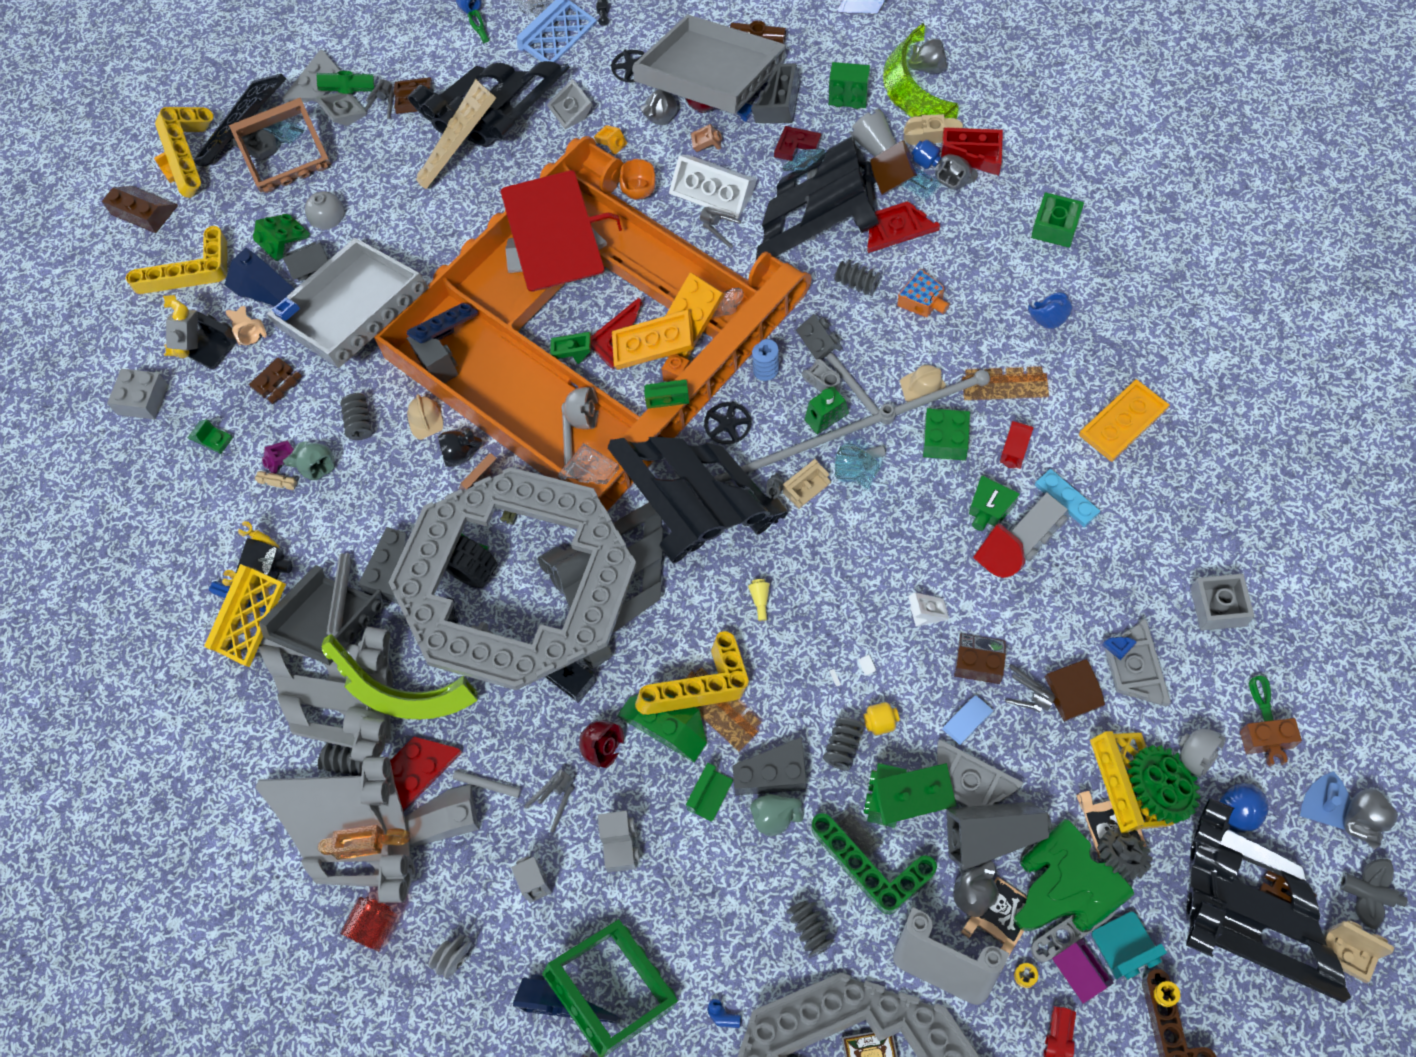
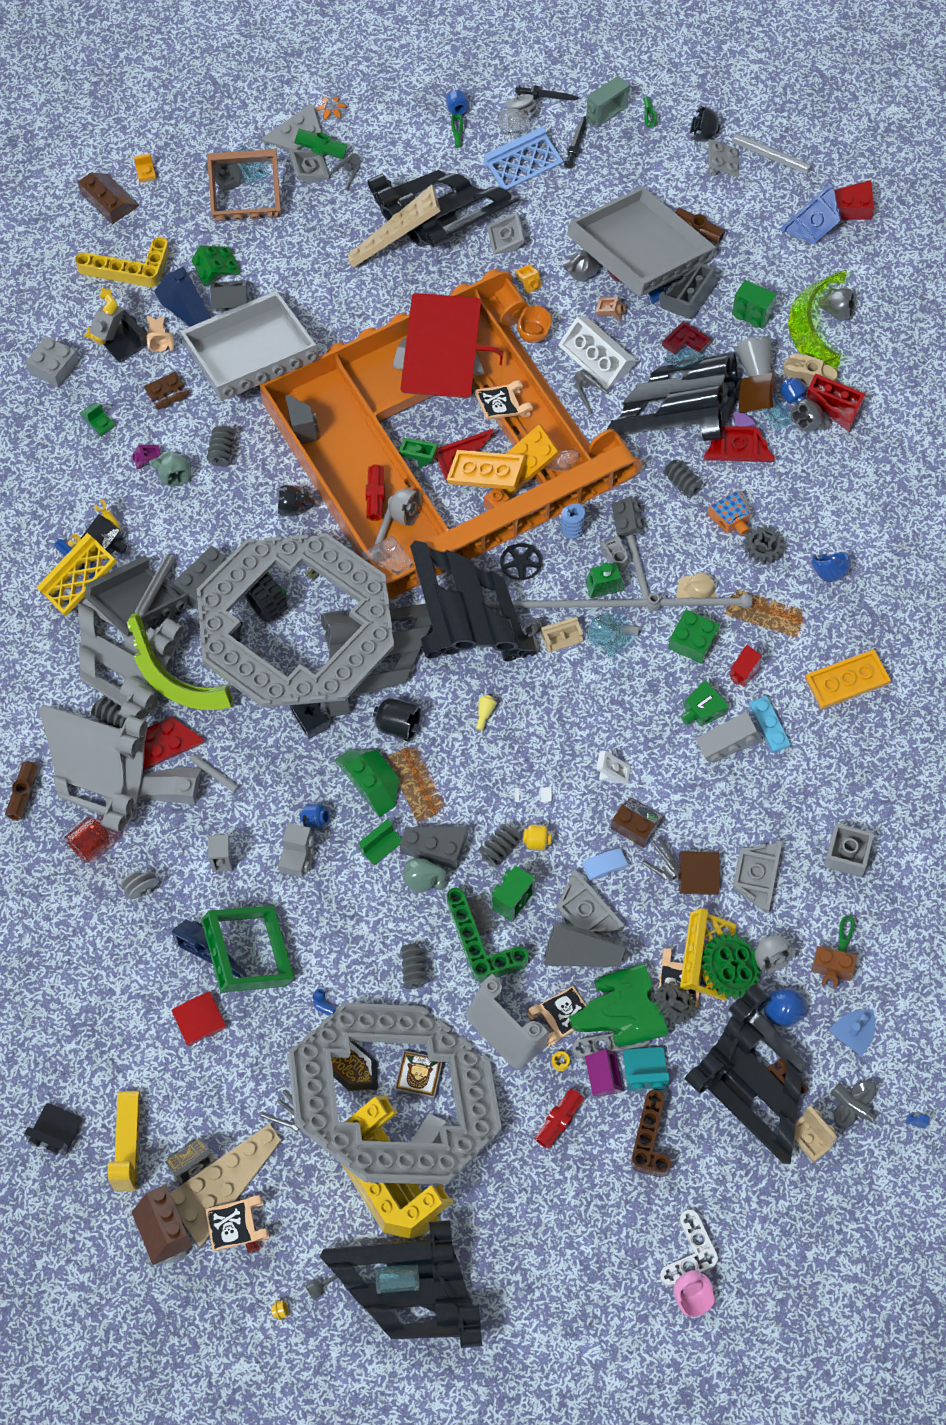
camera: 15 degrees right, 0 degrees up
(171, 125) = (180, 134): yellow beam -> none
(245, 107) = (223, 140): black wing -> none
(269, 908) = (25, 780): none -> reddish brown piece
(276, 480) = (137, 474): tan axle -> none
(285, 309) = (196, 333): blue tile -> none
(324, 210) = (260, 255): light grey cylinder -> none
(343, 48) = (331, 113): none -> clear dish
(365, 841) = (106, 779): clear orange piece -> none
(403, 89) = (370, 168): reddish brown slope -> none
(424, 417) = (276, 466): tan piece -> none
(442, 324) = (319, 393): dark blue bracket -> none
(479, 472) = (300, 529): nougat tile -> none
(543, 406) = (375, 492): none -> red piece
(558, 783) = (269, 793): flat silver plant -> none
(599, 742) = (312, 774): dark red cylinder -> none
(622, 791) = (315, 816): none -> blue head
(628, 65) = (575, 213): black wheel -> none
(637, 266) = (501, 401): none -> flag
(666, 394) = (476, 519): green panel -> none
(669, 642) = (397, 718): none -> black cylinder
(700, 685) = (407, 759): yellow beam -> none
(888, 200) = (743, 420): none -> medium lavender tile
(914, 793) = (533, 897): green piece -> none
(971, 314) = (763, 545): none -> dark grey gear
(976, 890) = (550, 985): flat silver piece -> none
(1001, 553) = (691, 746): red tile -> none
(1057, 220) = (876, 490): green brick -> none
(1119, 646) = (750, 853): blue tile -> none
(1158, 994) = (653, 1115): yellow bush -> none
(1369, 816) = (878, 1049): flat silver piece -> none

